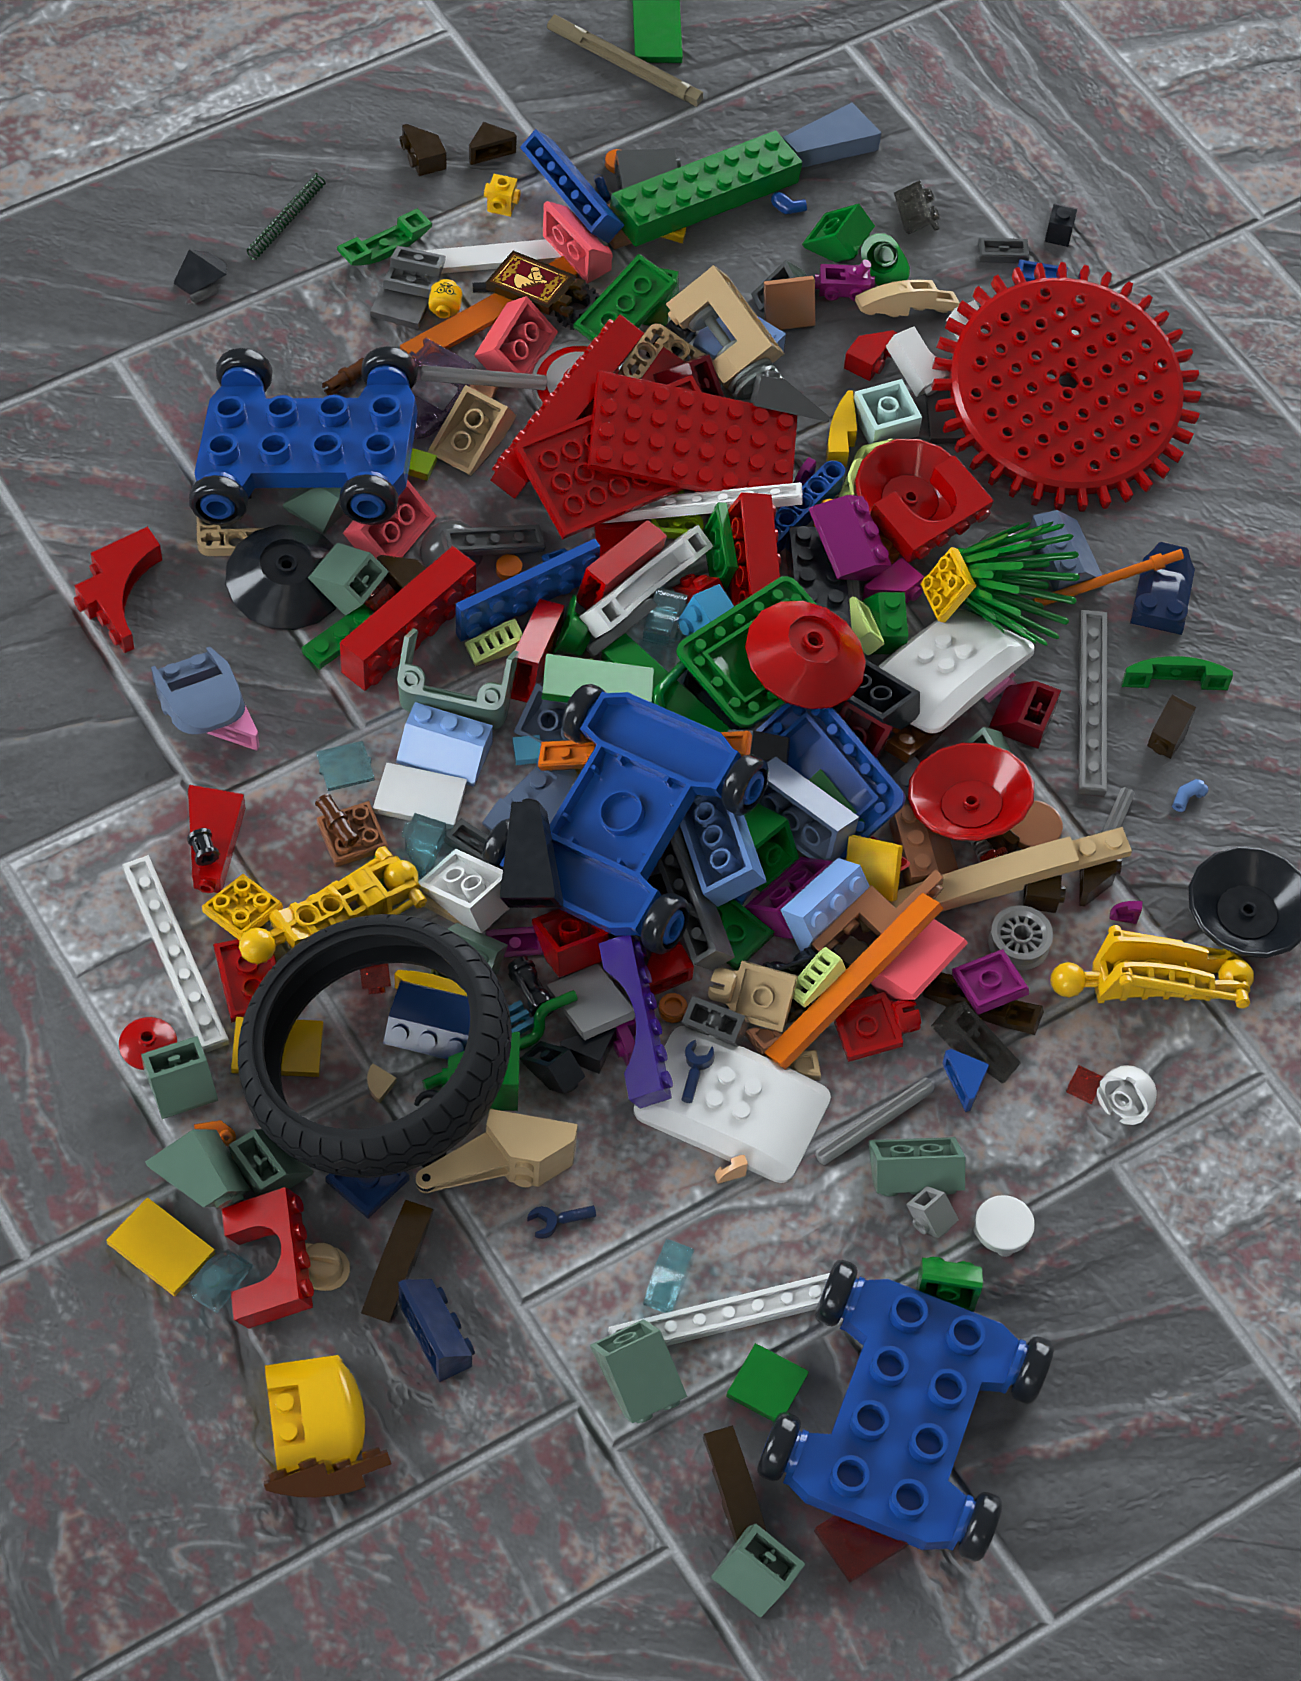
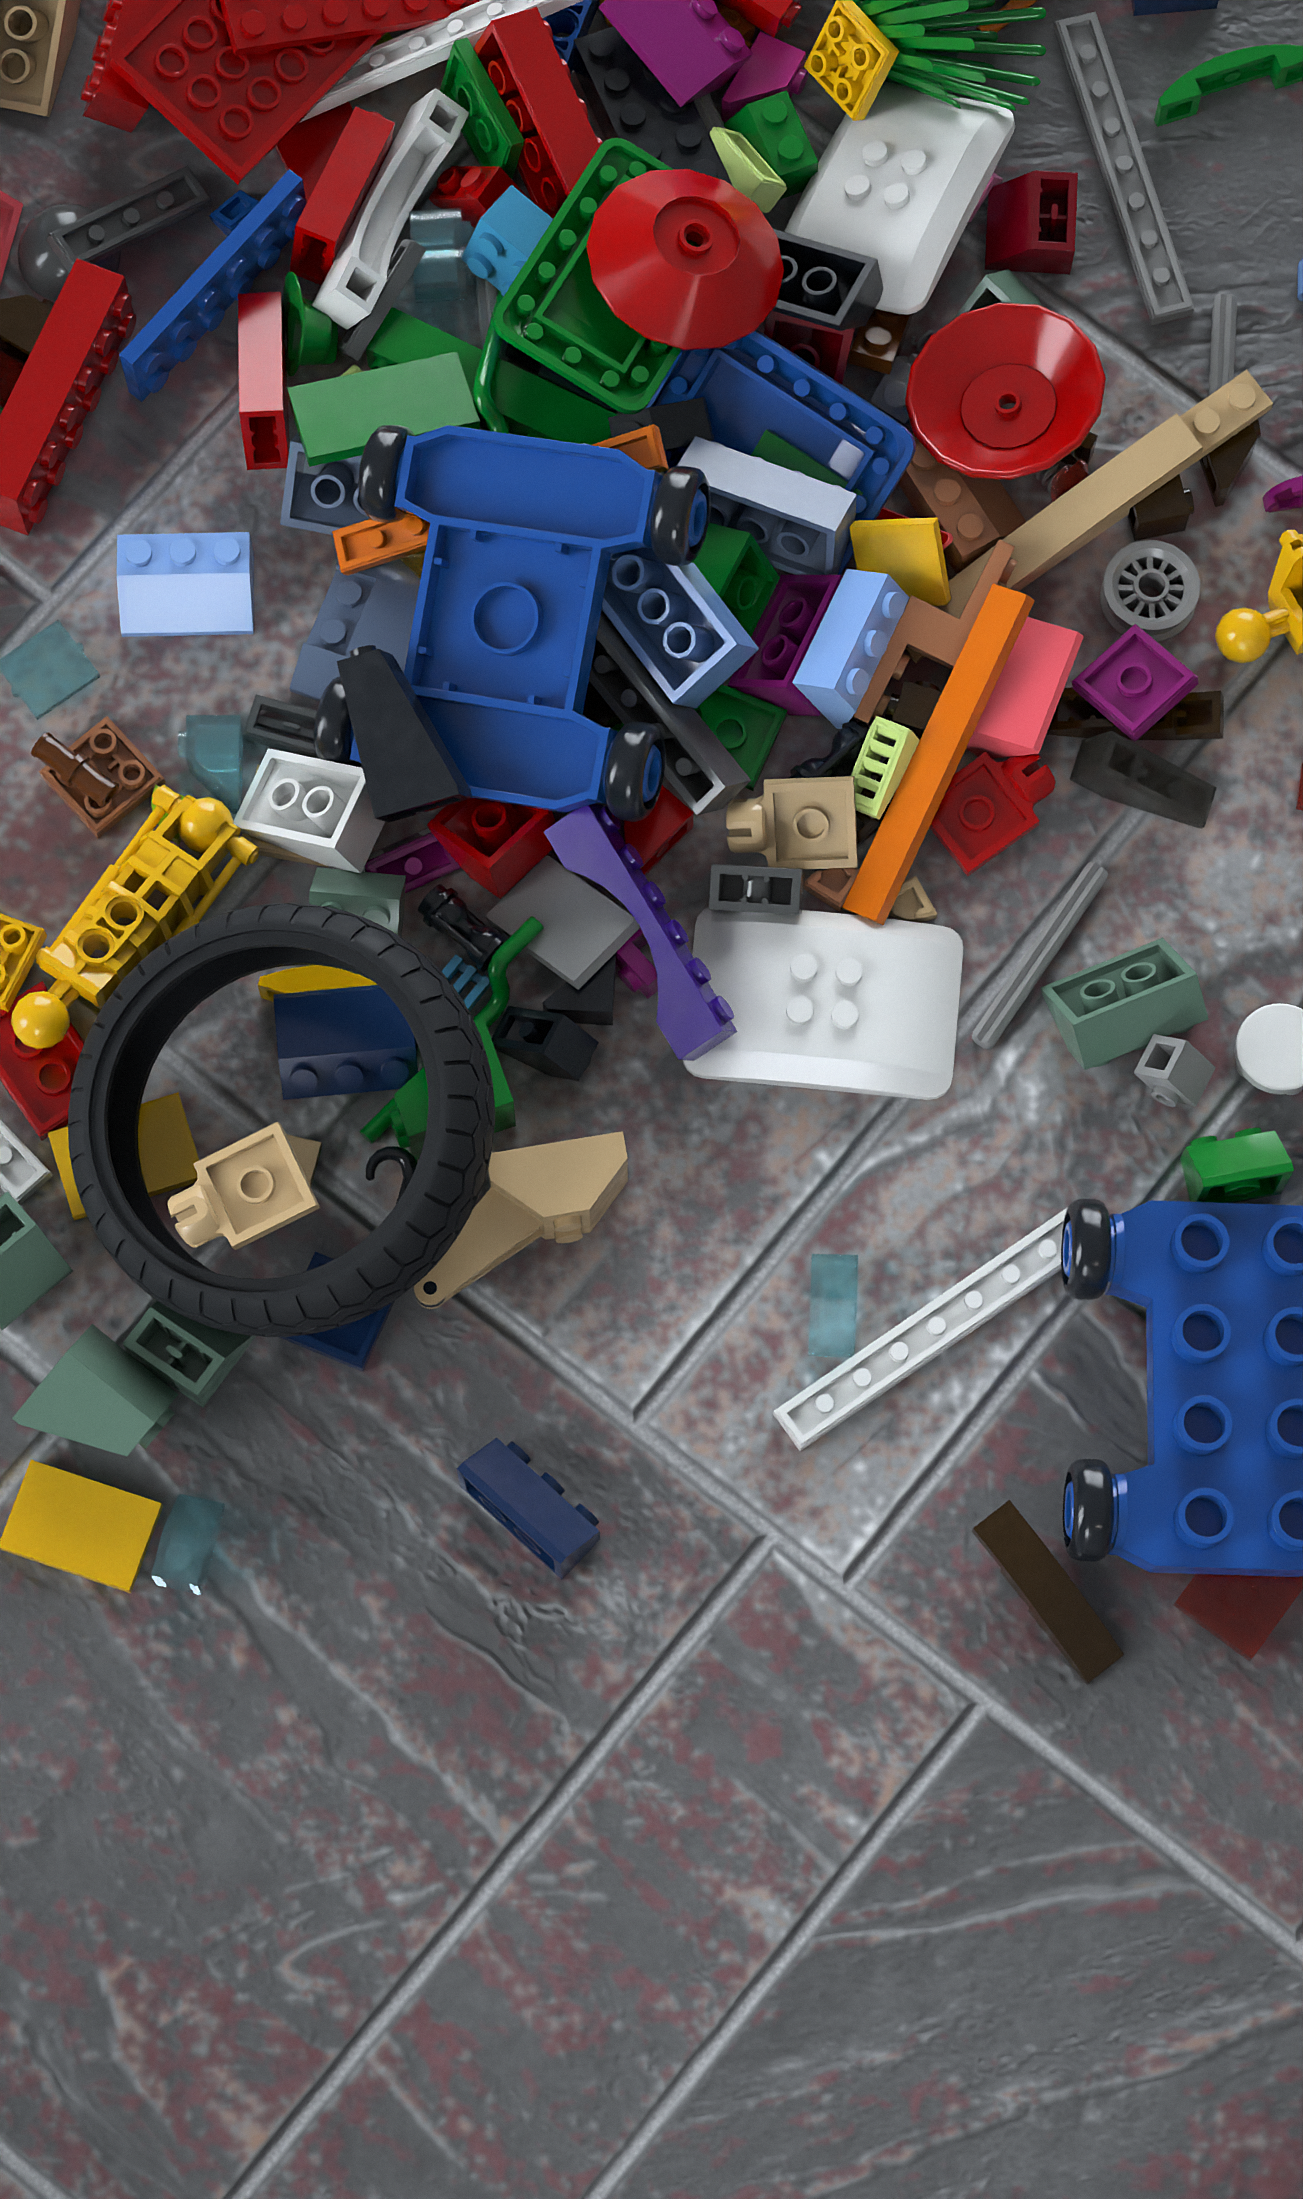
camera: 15 degrees left, 15 degrees up
(226, 1133) = (82, 1318): orange arm -> none
(289, 1285) = (296, 1524): red arch -> none
(314, 1411) = (406, 1699): yellow slope -> none
(315, 1481) = (447, 1798): reddish brown slope -> none
(328, 1266) = (314, 1474): tan piece -> none
(333, 1069) = (244, 1191): none -> tan plate
(375, 978) = (232, 1003): clear red bracket -> none
(397, 1260) = (434, 1424): dark brown slope -> none
(419, 791) = (177, 677): white tile -> none
(488, 707) = (227, 507): sand green windscreen -> none
(492, 636) = (198, 366): yellowish green slope -> none
(508, 566) = (168, 253): orange tile -> none
(526, 749) = (310, 546): medium azure tile -> none
(549, 1216) = (646, 1267): dark blue piece -> none
(639, 1371) = (844, 1463): sand green slope -> none
(672, 1007) = (682, 883): orange tile -> none
(677, 525) = (398, 94): lime plate -> none
(696, 1063) = (754, 965): dark blue piece -> none
(735, 1170) = (869, 1101): light nougat tile -> none
(757, 1570) = (1119, 1696): sand green slope -> none
(767, 1383) = (1031, 1413): green tile -> none
(965, 1075) = (1147, 840): blue slope -> none
(1039, 826) = (1124, 408): nougat tile -> none
(1171, 727) = (1258, 173): dark brown slope -> none

